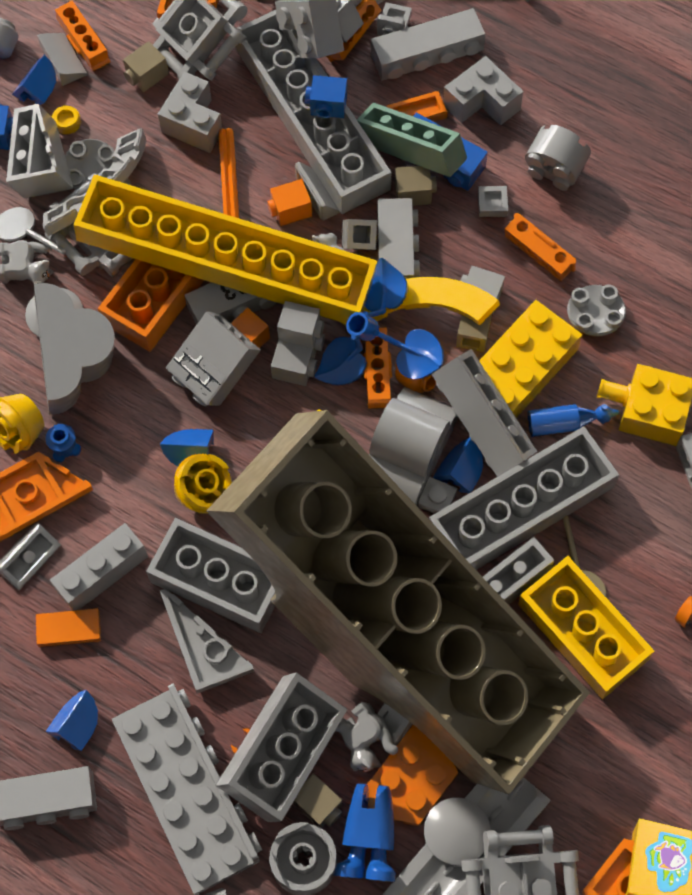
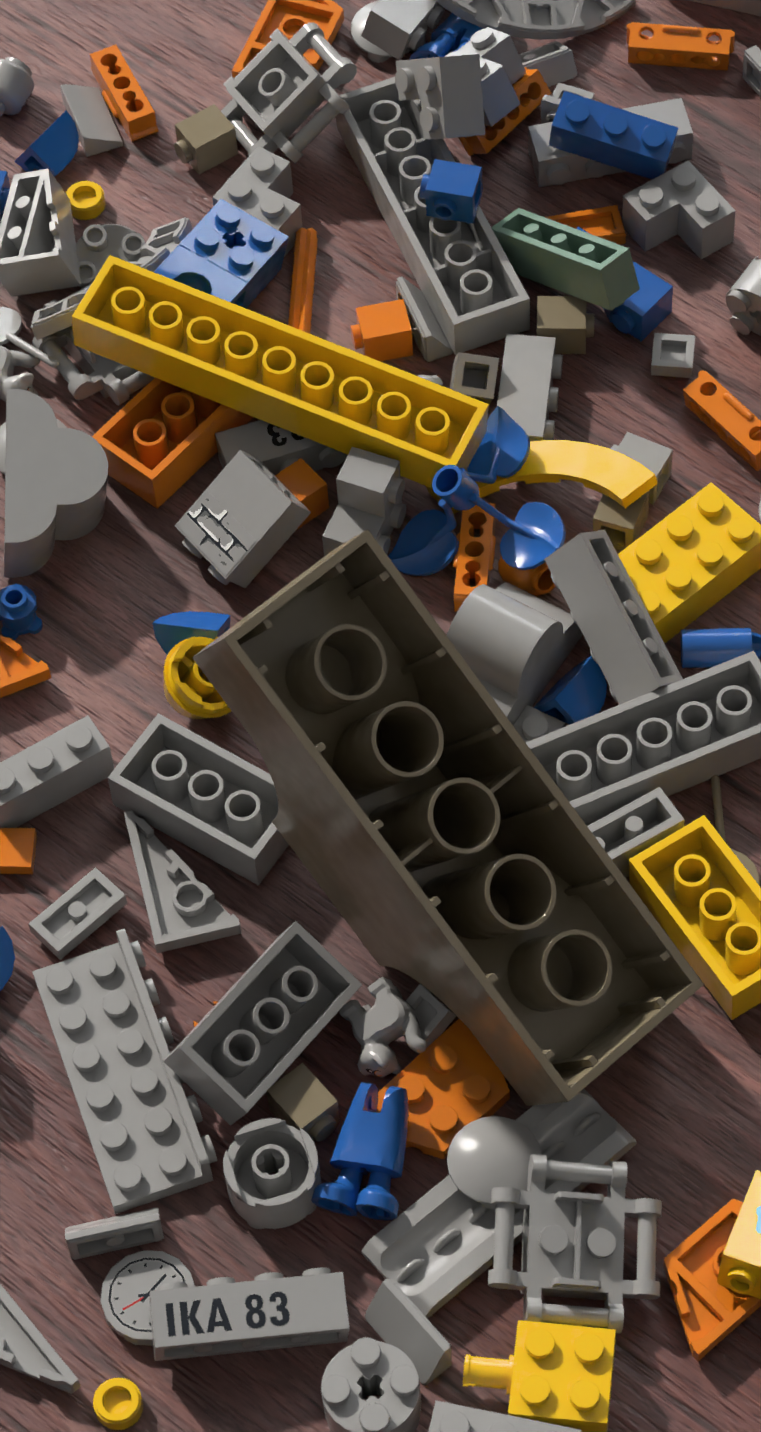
camera: 10 degrees right, 10 degrees down
(137, 670) = (77, 913): none -> light grey plate
(172, 160) = (227, 255): none -> brick
(432, 43) = (612, 136): none -> blue brick

